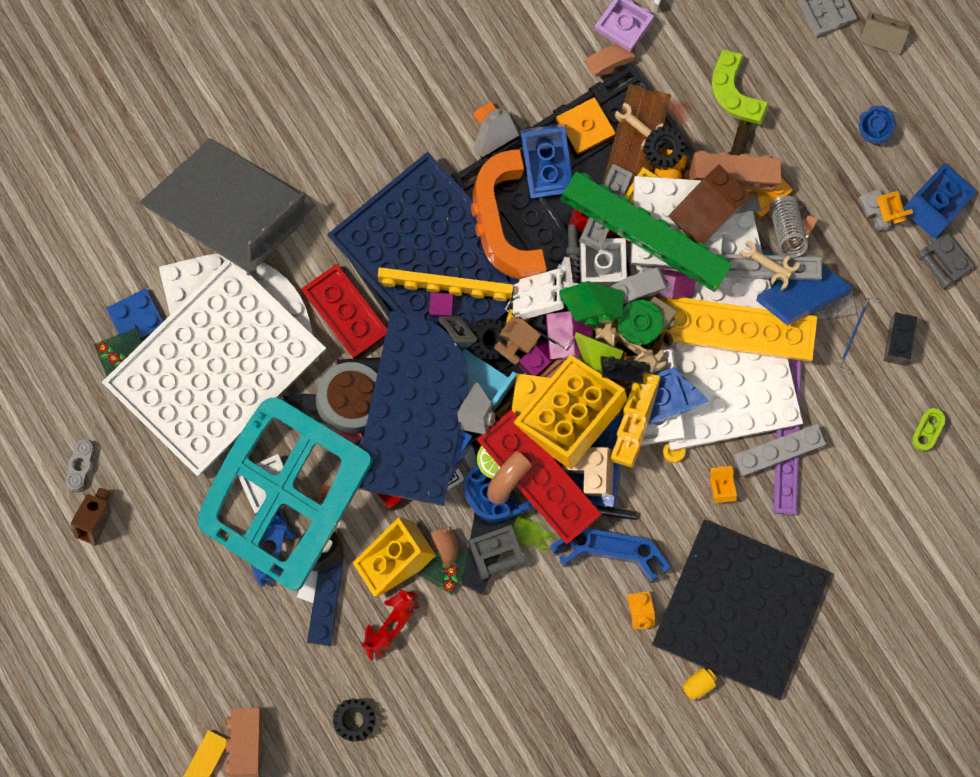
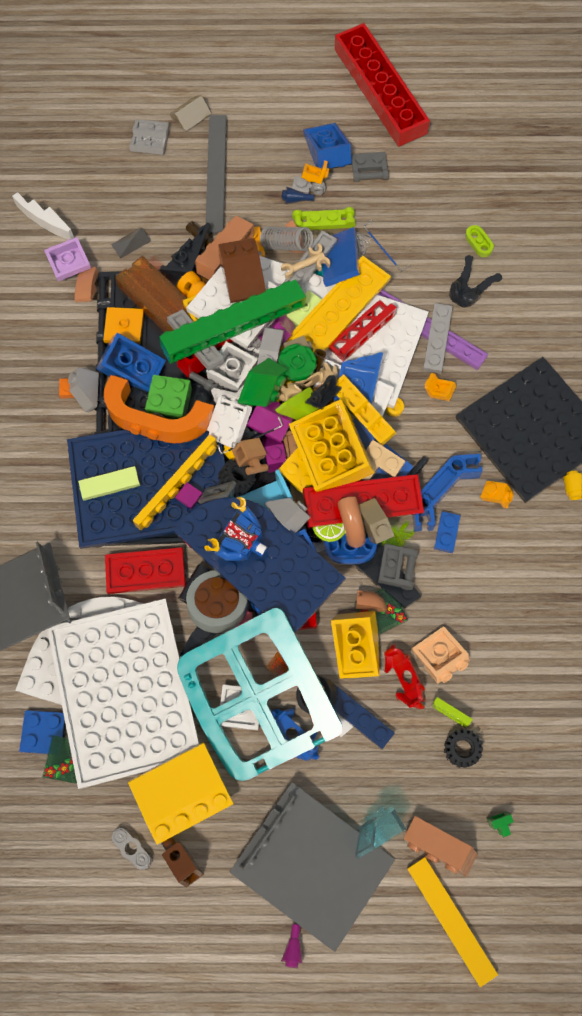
camera: 55 degrees left, 5 degrees down
(72, 667) = (292, 954): none -> magenta cone
(152, 477) = (180, 793): none -> yellow slope
(159, 639) = (309, 867): none -> dark grey door
(224, 679) = (377, 830): none -> clear light blue slope
(381, 699) = (451, 712): none -> lime tile
(406, 221) = (109, 483): none -> yellowish green tile
(418, 378) = (240, 536): none -> torso
(433, 647) = (441, 655): none -> light nougat plate
(521, 499) = (375, 521): none -> dark tan slope
(532, 221) = (168, 397): none -> bright green brick
(568, 582) = (447, 532): none -> blue plate
(636, 123) = (165, 281): tan bar -> none
(658, 159) = (179, 268): black tyre -> none
(689, 71) = (130, 242): none -> dark grey slope
(710, 138) = (184, 259): none -> black wing
(726, 293) = (299, 315): none -> yellowish green plate
(728, 96) = (166, 226): lime plate -> none
(731, 372) = (364, 333): none -> red fence
(827, 106) = (216, 173): none -> dark grey tile
(847, 250) = (325, 219): none -> lime plate
(850, 445) = (464, 295): none -> black hair
(853, 202) = (291, 196): none -> dark blue cone
(877, 124) = (250, 151): blue hair -> none
(900, 339) = (407, 221): black brick -> none

